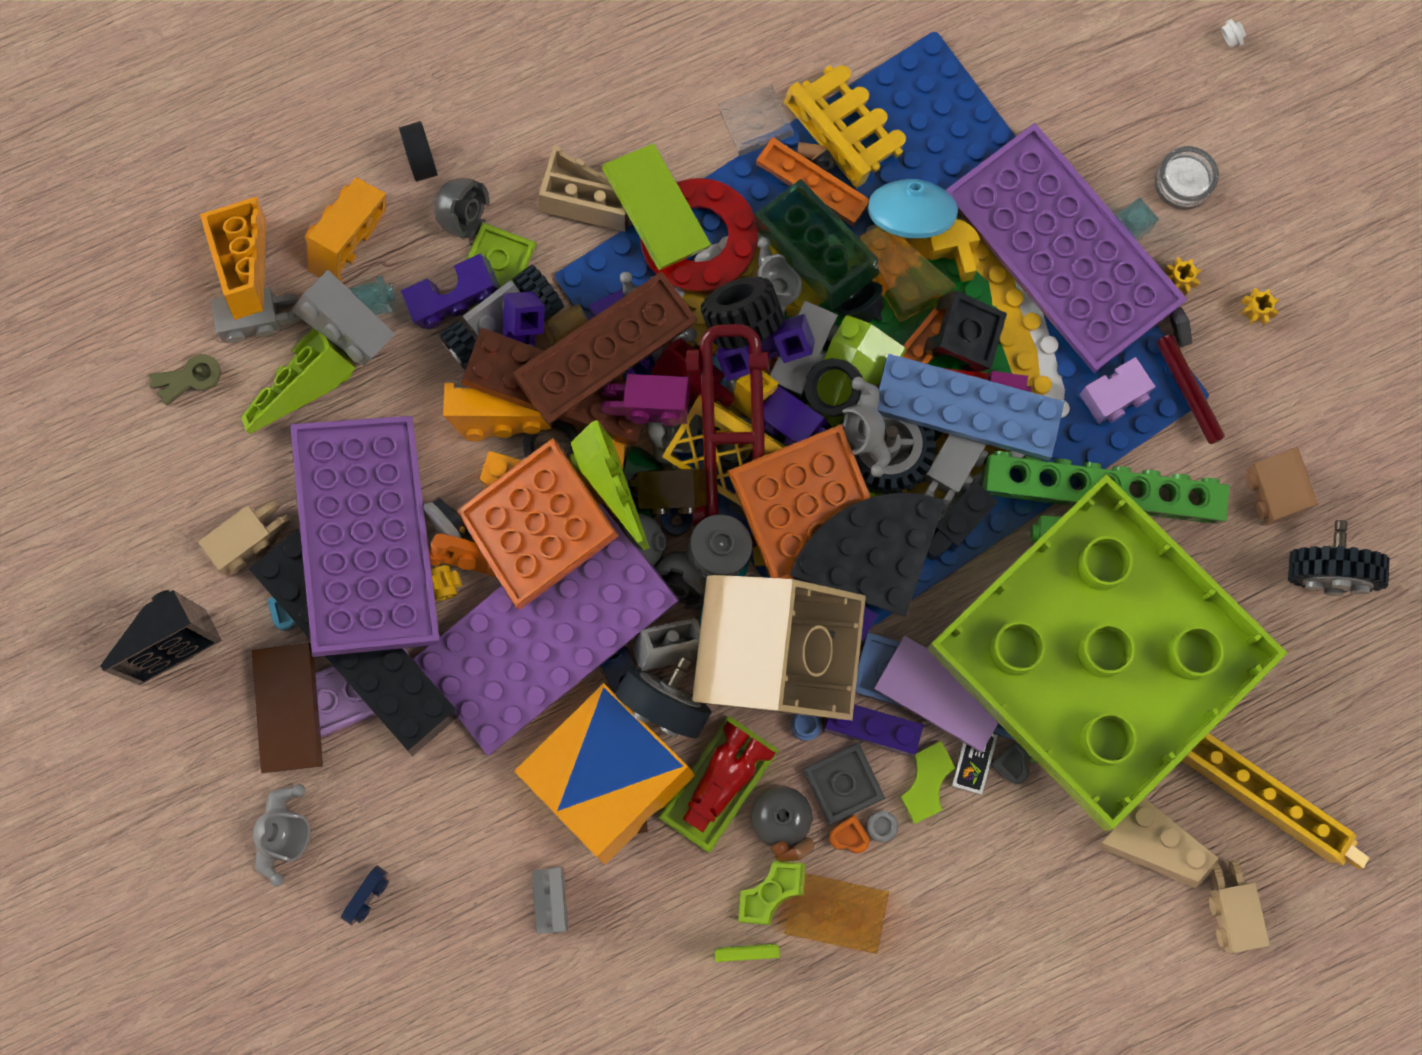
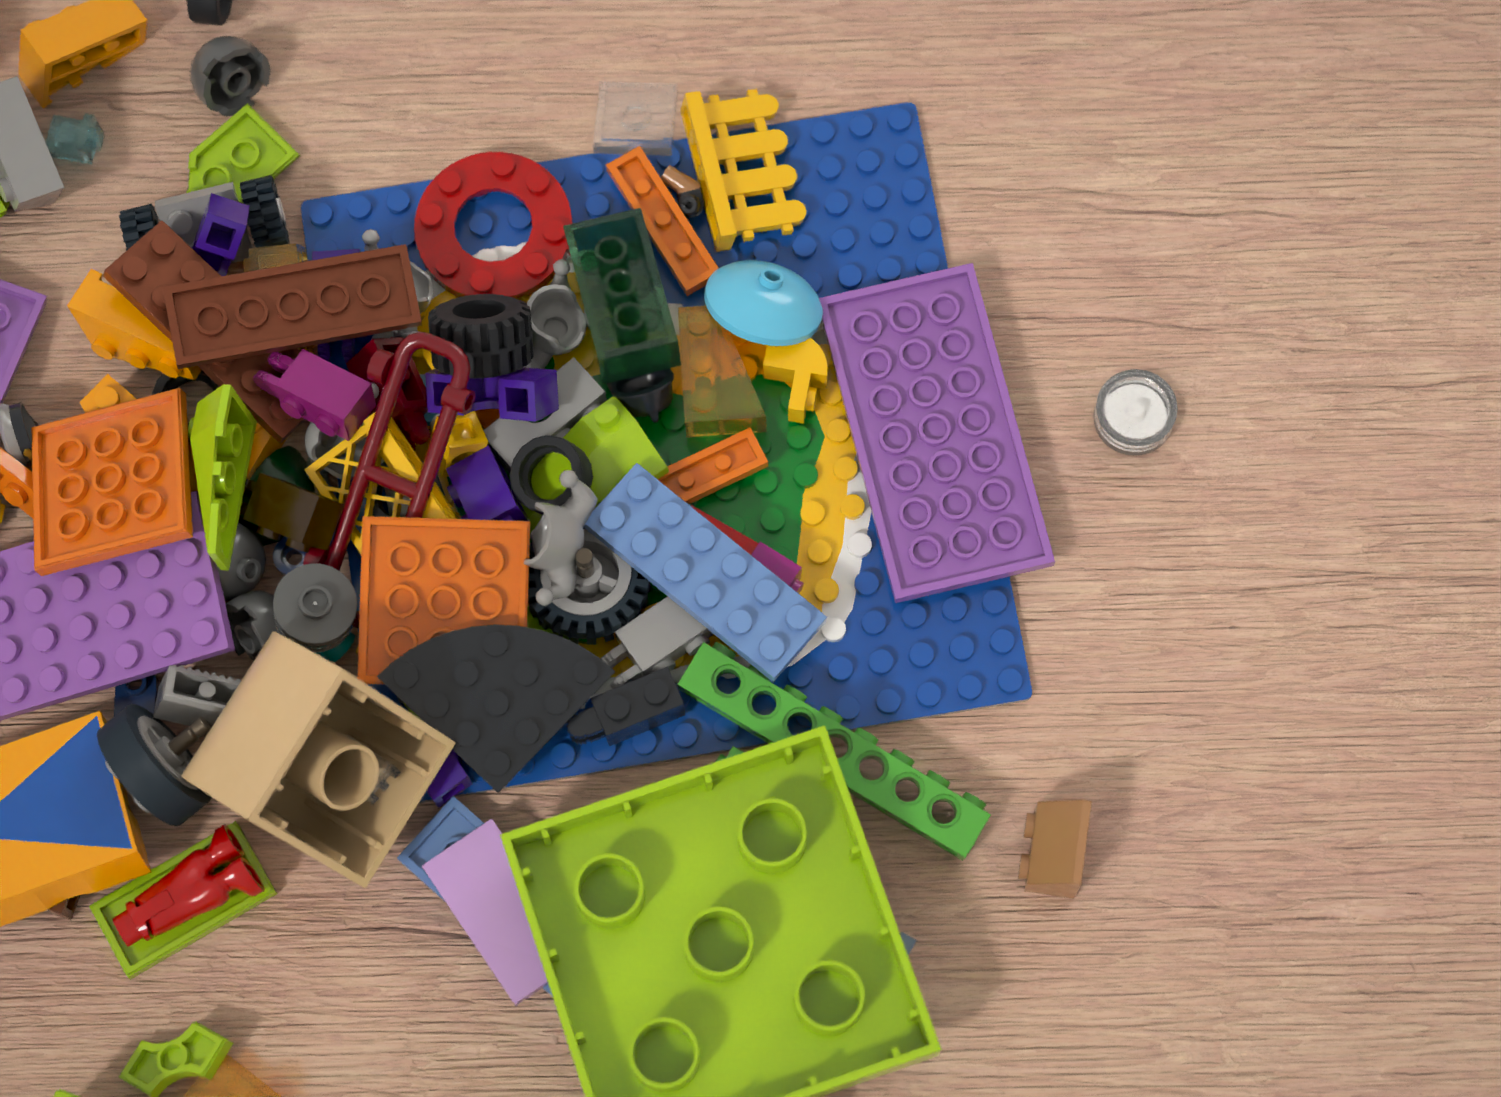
camera: 30 degrees right, 5 degrees down
(474, 285) = (132, 174): dark purple arch -> none
(580, 193) = (378, 118): tan wedge -> none
(656, 206) = (452, 168): lime tile -> none
(788, 829) = (240, 990): dark grey cylinder -> none
(794, 853) = (229, 1024): arm -> none
(806, 727) = (321, 879): medium blue plate -> none
(843, 783) = (333, 969): dark grey tile -> none
(849, 835) = (308, 1035): orange tile -> none
(879, 729) = (403, 920): dark purple arch -> none
(882, 826) = (353, 1043): light grey tile -> none
(923, 796) = (422, 1029): lime tile -> none
(967, 331) = (753, 480): black panel -> none
(973, 767) = (503, 1021): tile -> none
(1011, 764) = (549, 1043): dark grey tile -> none
(1110, 397) = (910, 639): lavender brick -> none
(1138, 219) = (1042, 438): clear light blue brick -> none
(1181, 327) = (1036, 594): dark grey tile -> none
(1186, 269) = (1069, 521): yellow gear -> none
(1190, 389) = (1006, 676): dark red axle -> none
(1233, 33) = (1287, 260): white plate -> none
(1267, 308) = (1148, 601): yellow gear -> none
(1338, 567) = (1073, 978): black wheel -> none

